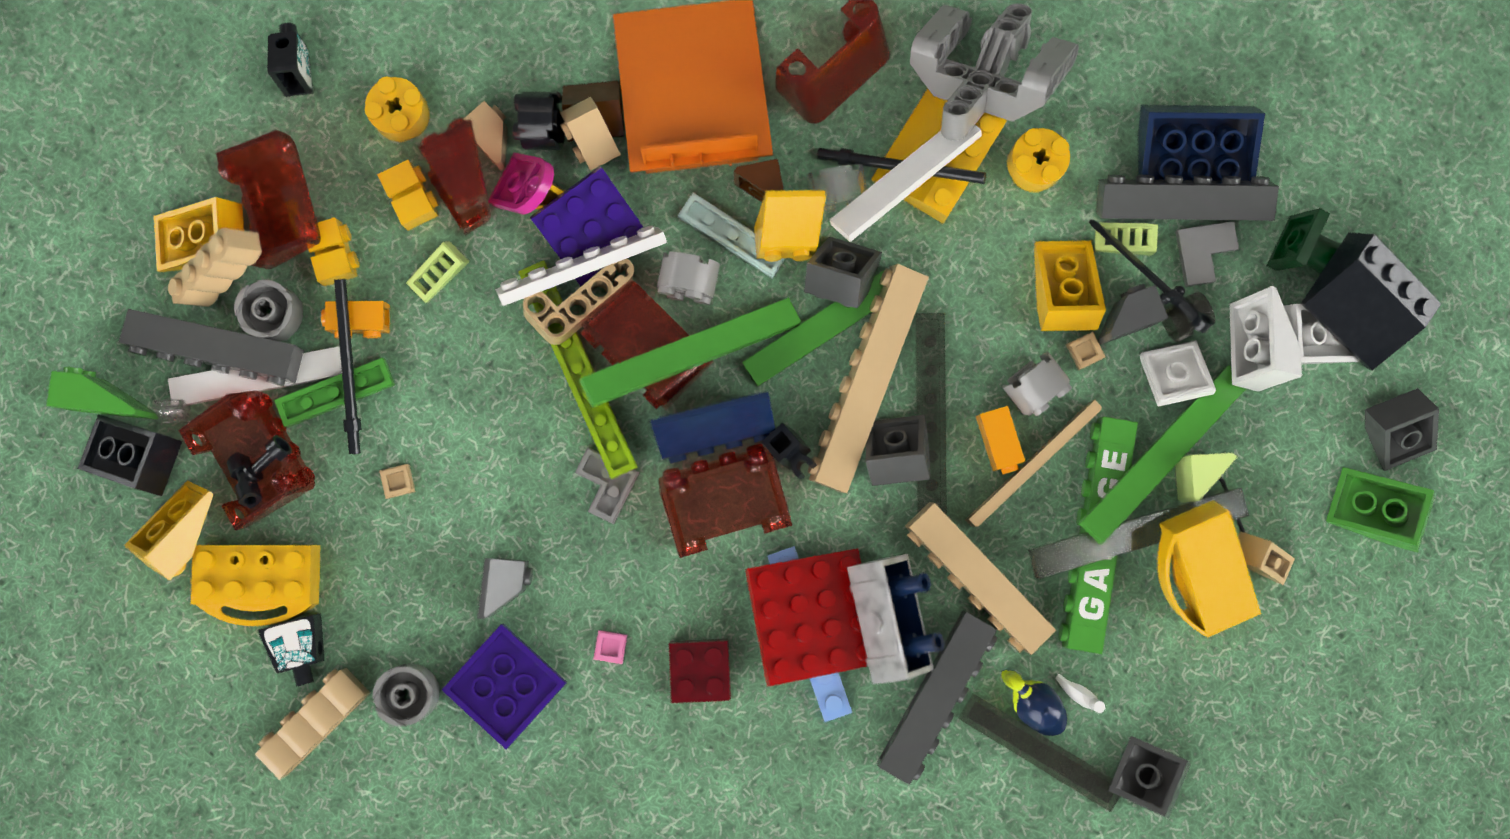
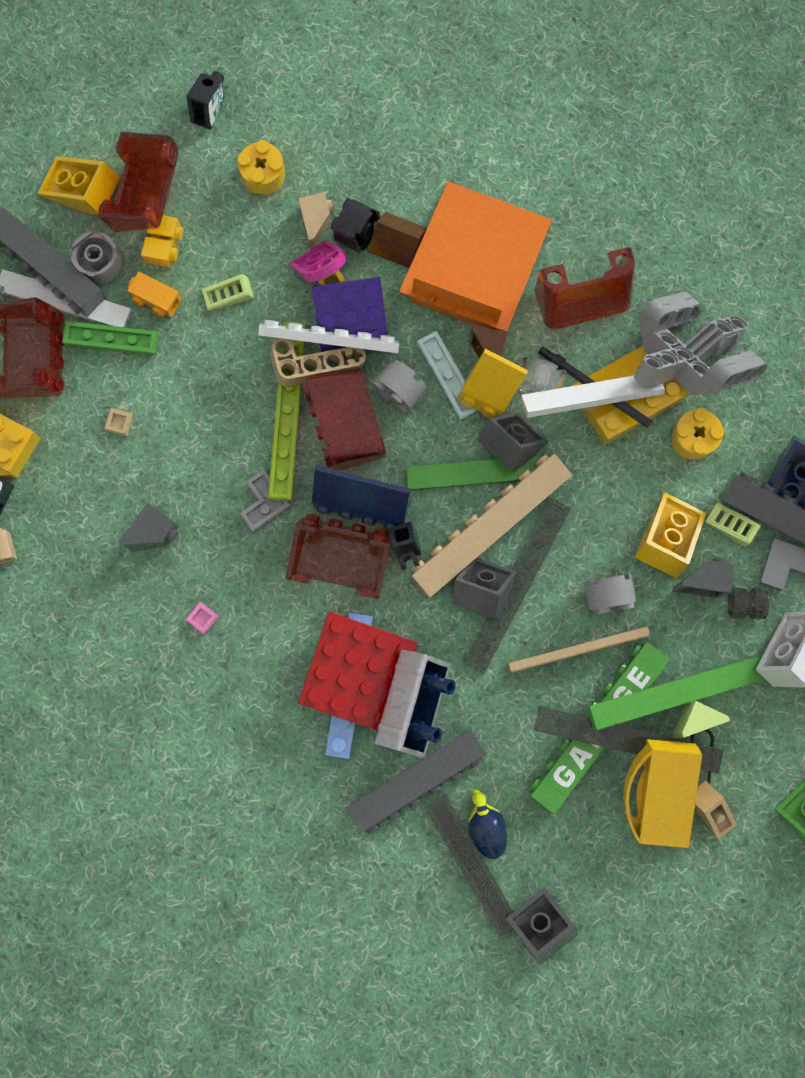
camera: 30 degrees right, 5 degrees down
(215, 267) = (76, 207): tan brick -> none
(250, 473) = (19, 360): black bar -> none
(352, 423) = (109, 365): black bar -> none
(390, 699) = (27, 570): light grey brick -> none
(409, 196) = (237, 229): yellow piece -> none
(458, 174) = (278, 229): clear red windscreen -> none
(504, 686) = (112, 604): dark purple plate -> none
(590, 134) = (385, 251): tan brick -> none
(689, 352) = (372, 437): bright green tile -> none
(699, 671) = (255, 668): dark red brick -> none
(980, 578) = (494, 711): tan brick -> none
(1000, 440) = (563, 619): light orange brick -> none
(1081, 694) = (523, 837): white bar -> none
(1085, 351) = (660, 589): tan tile -> none
(1177, 373) = (719, 640): white tile -> none
(1200, 320) = (754, 608): black sword -> none

